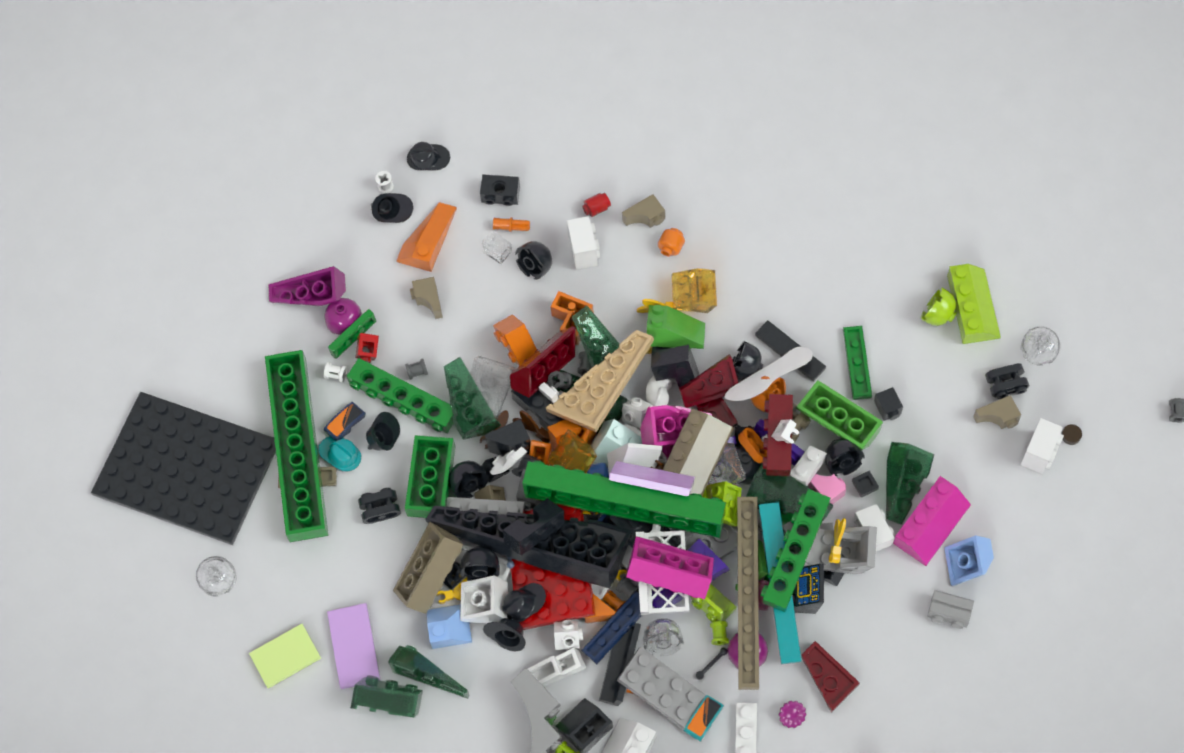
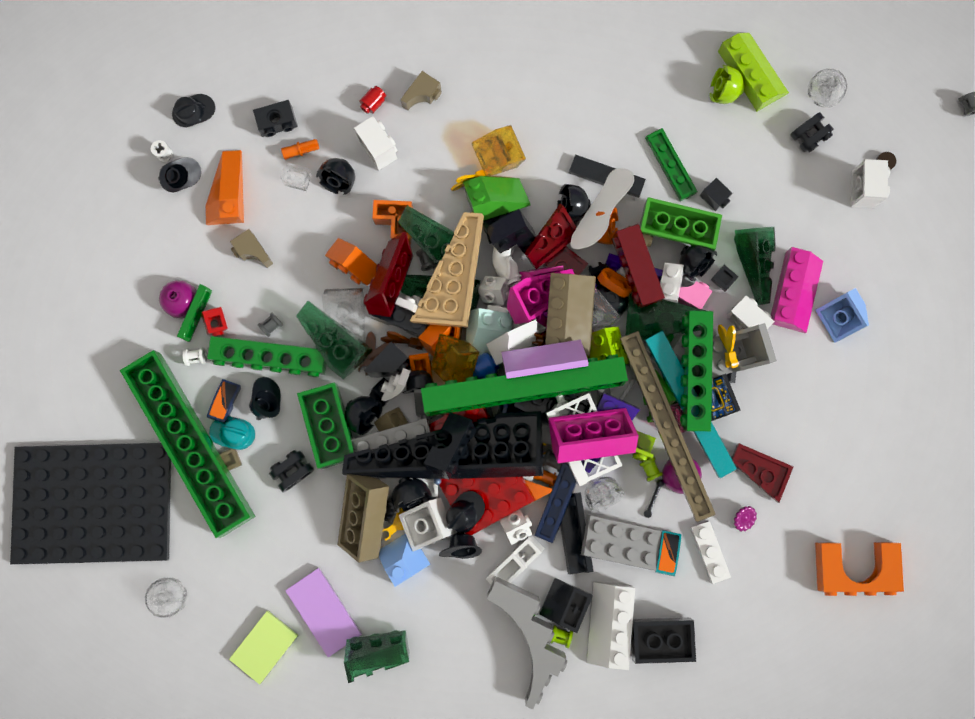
camera: 25 degrees left, 15 degrees up
(310, 289) = (136, 284): magenta wedge -> none
(413, 665) = (388, 610): clear green wedge -> none
(561, 378) = (411, 285): dark grey bush -> none
(671, 242) = (457, 111): orange head -> none
(783, 431) = (646, 263): white tile -> none
(950, 609) = (845, 366): light grey brick -> none
(1001, 412) = (820, 165): dark tan arch -> none

